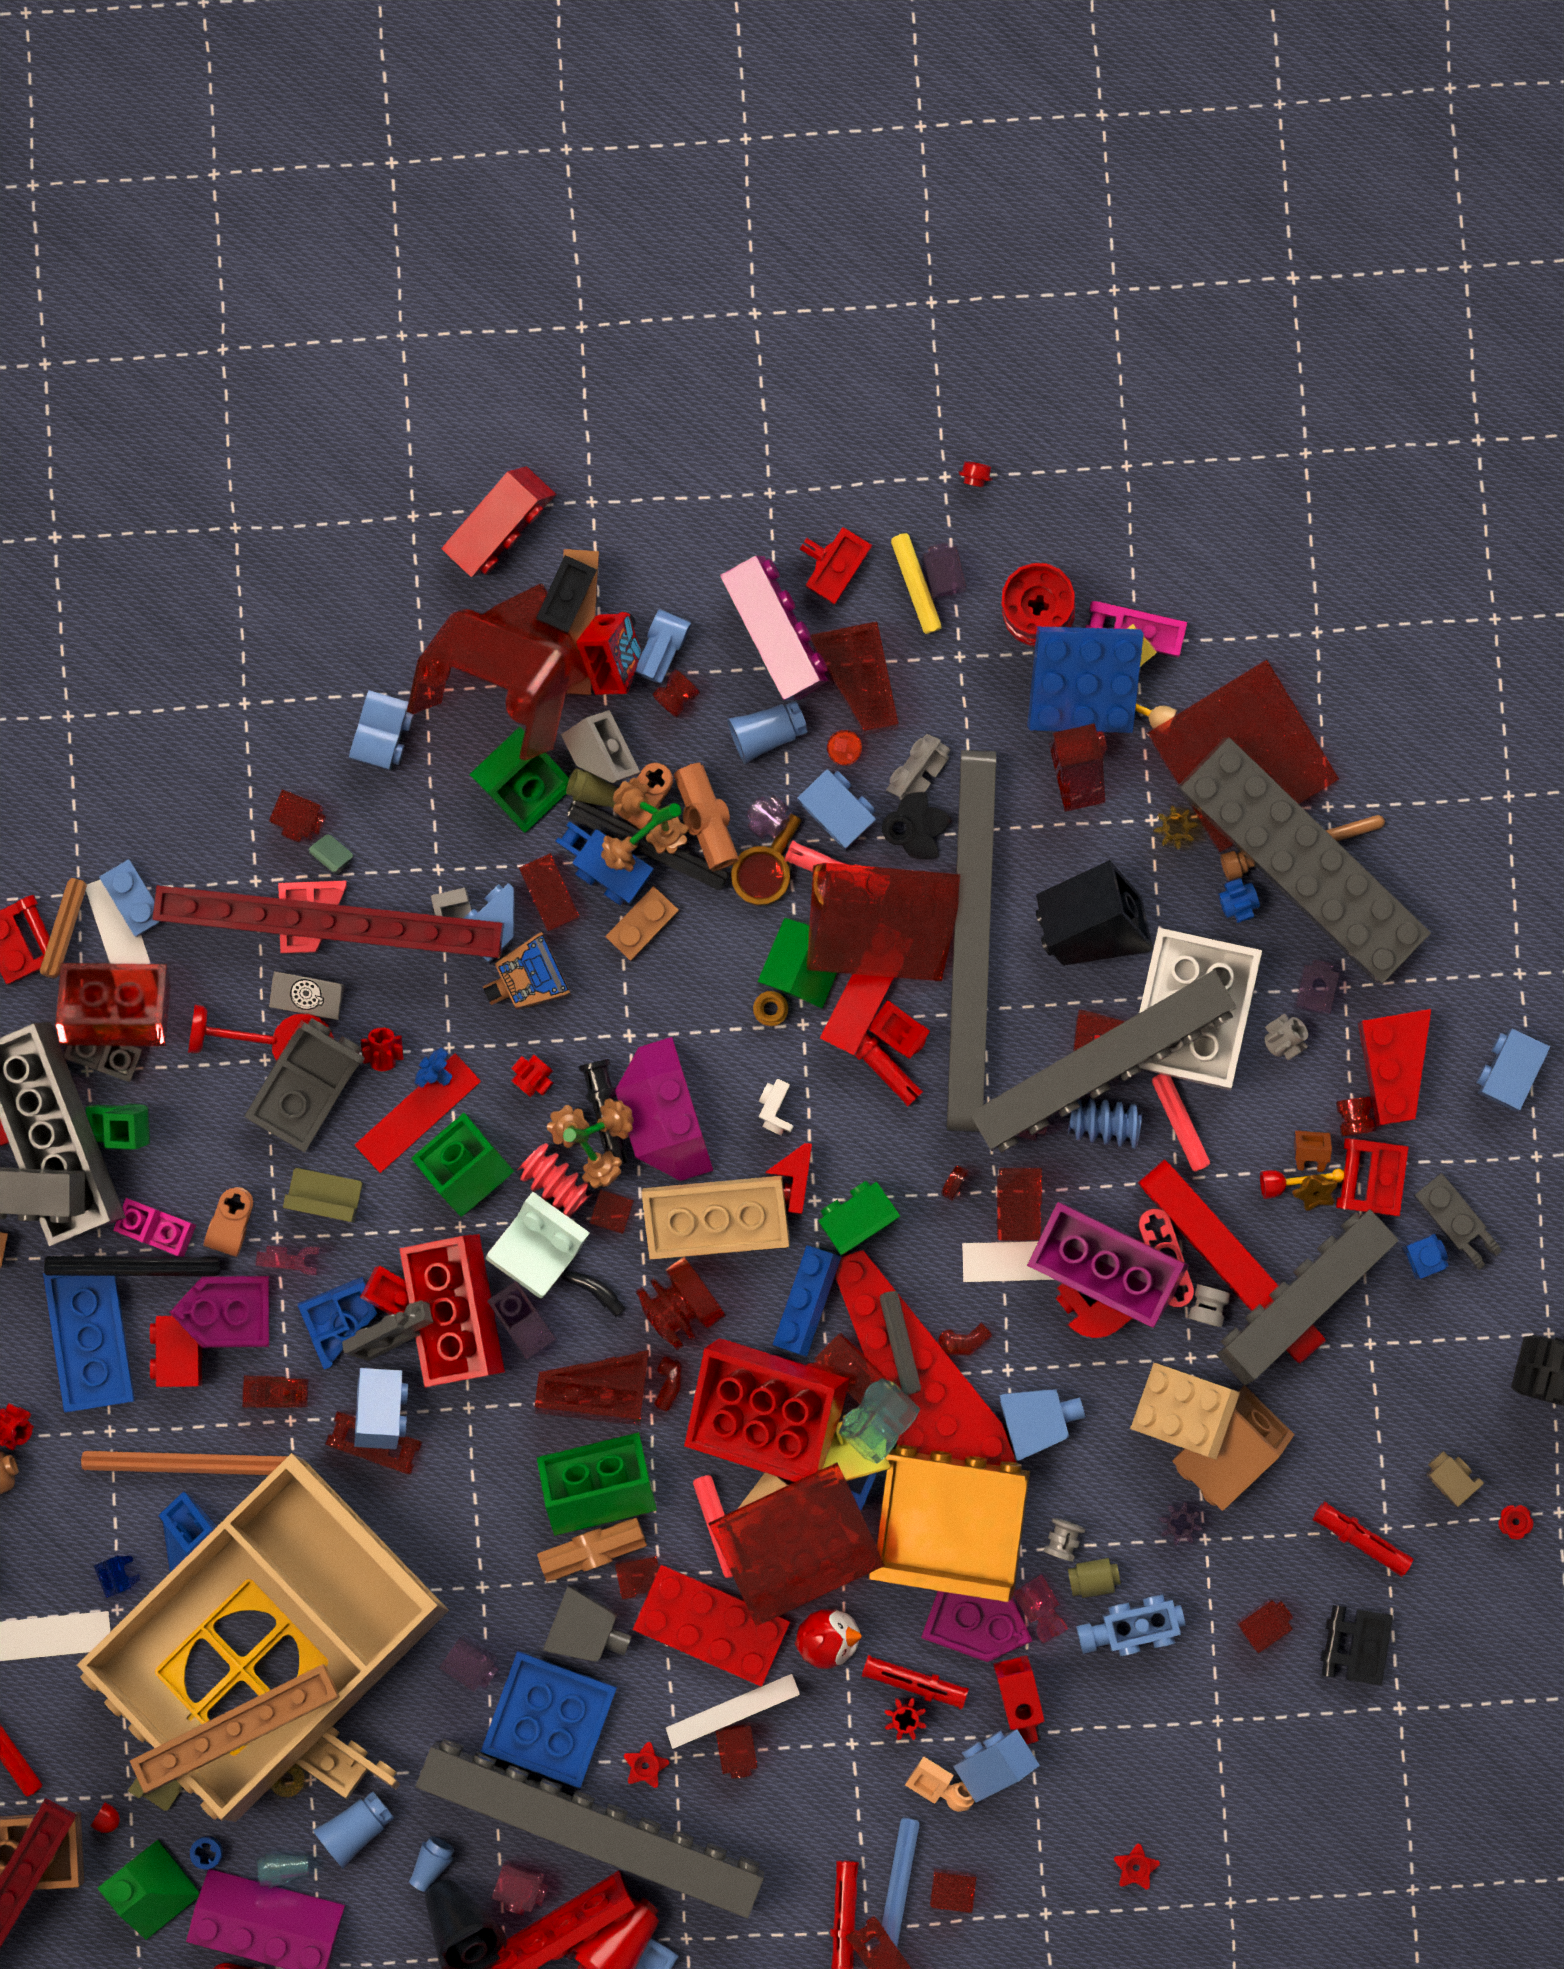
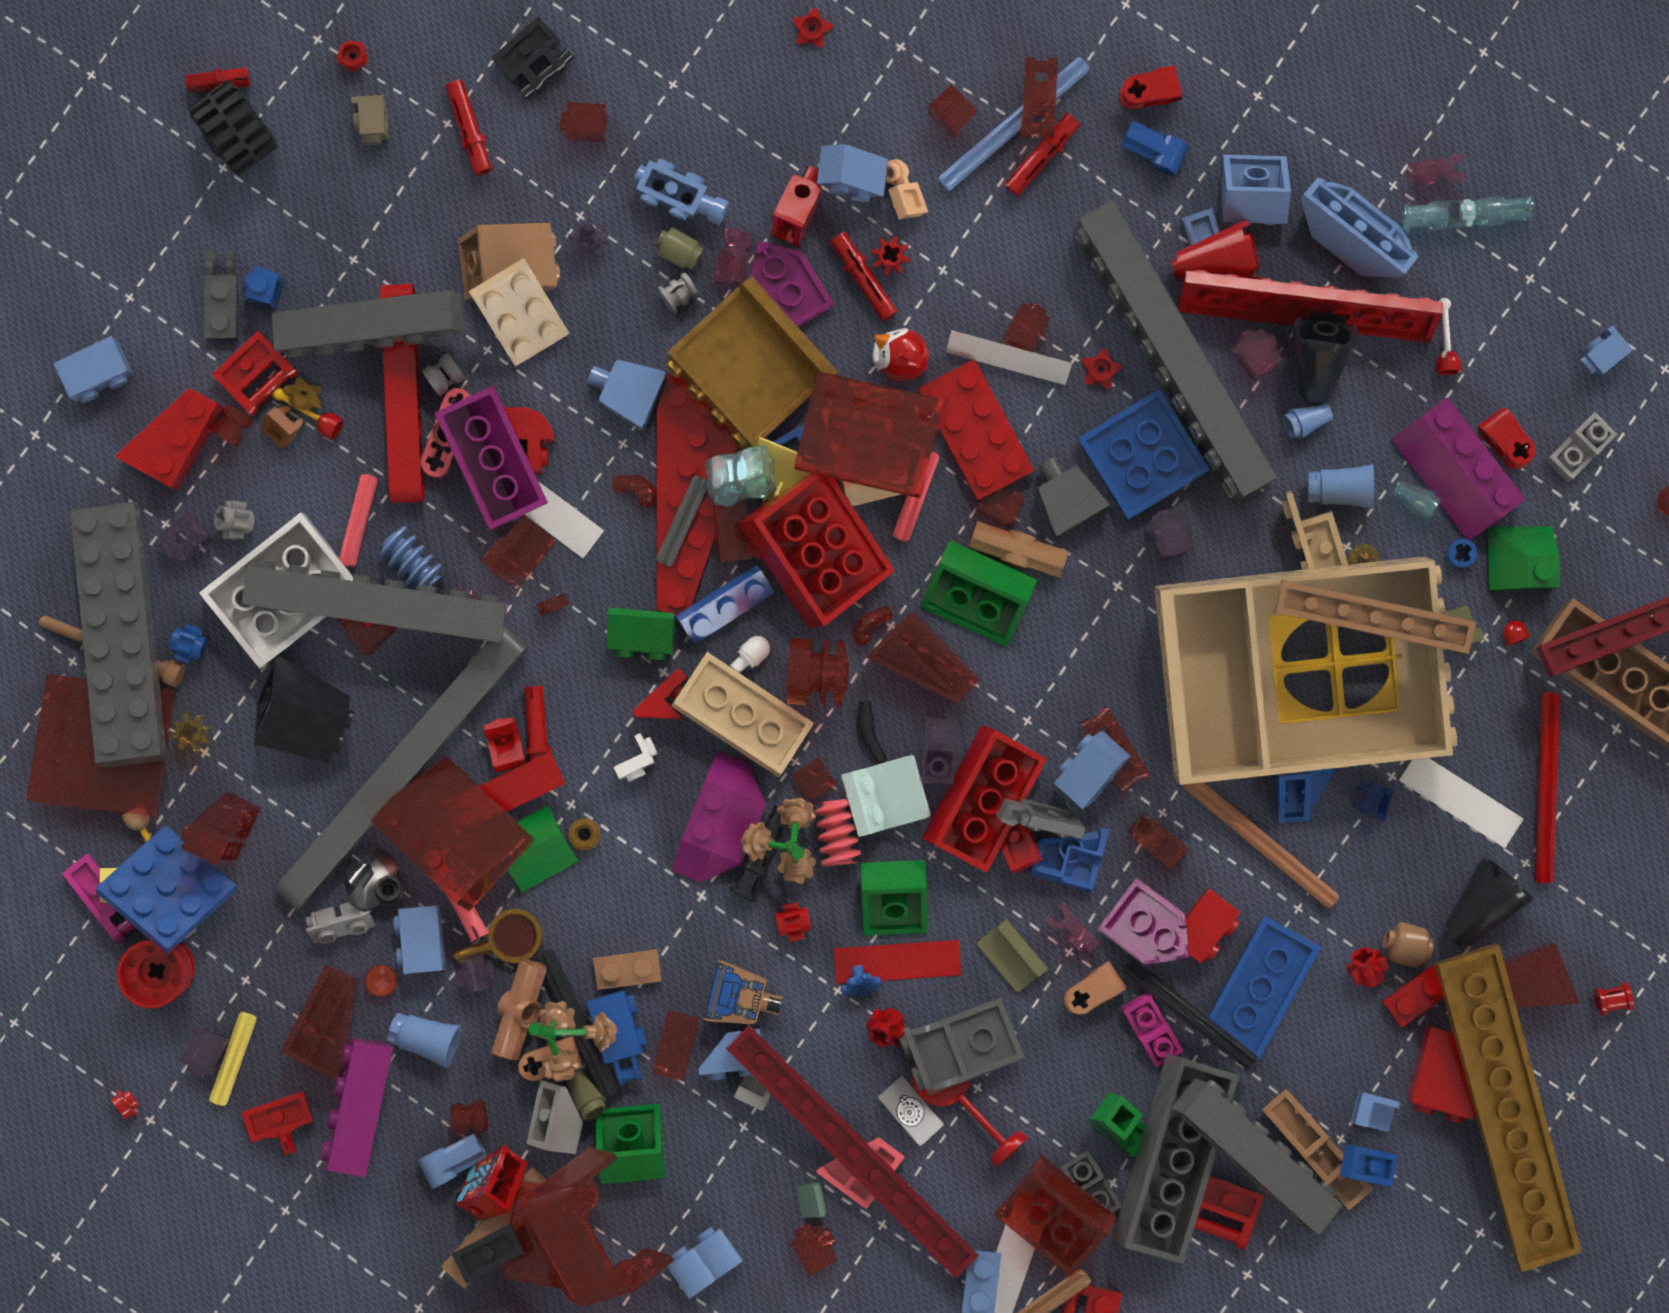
camera: 145 degrees left, 0 degrees up
(751, 1276) = (751, 653): none -> white cylinder

